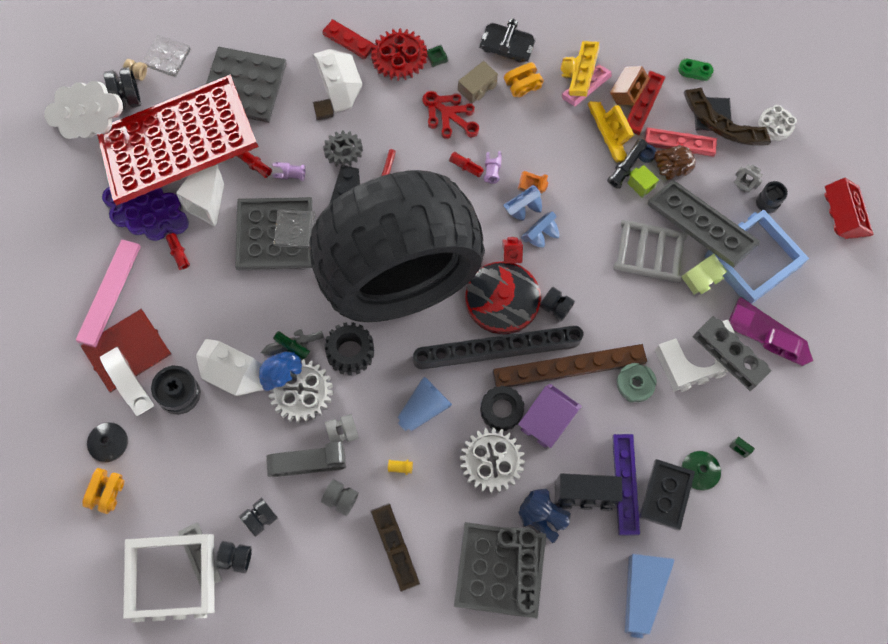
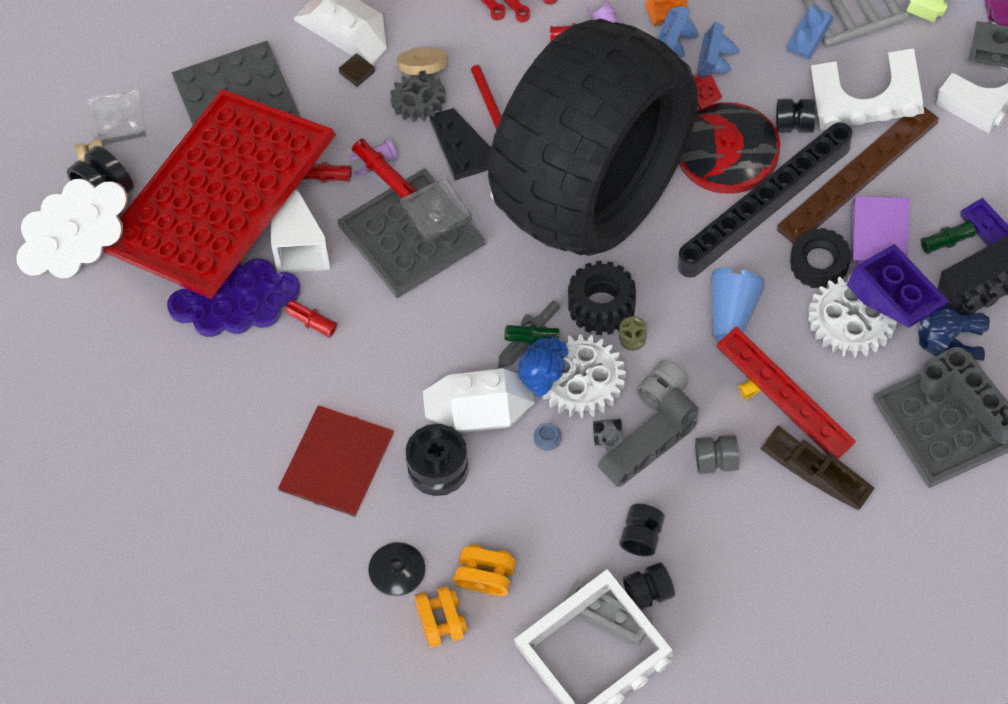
camera: 25 degrees left, 10 degrees down
(108, 293) = (265, 411): bright pink tile -> none
(126, 381) = (367, 476): white arch -> none
(163, 481) = (484, 570): none -> light orange brick
(253, 416) = (547, 436): none -> sand blue plate
(283, 182) = (376, 163): none -> red pin
(285, 440) = (608, 433): none -> black piece
(351, 379) = (637, 329): none -> olive wheel
(362, 127) = (422, 59): none -> tan tile
(410, 486) = (785, 393): none -> red tile
(525, 465) = (895, 287): none -> dark purple slope
(592, 446) = (948, 237): none -> dark green pin
(609, 253) = (810, 32): none -> medium blue tile
(629, 335) = (900, 99): none -> white arch
(639, 372) = (940, 158): sand green plate -> none

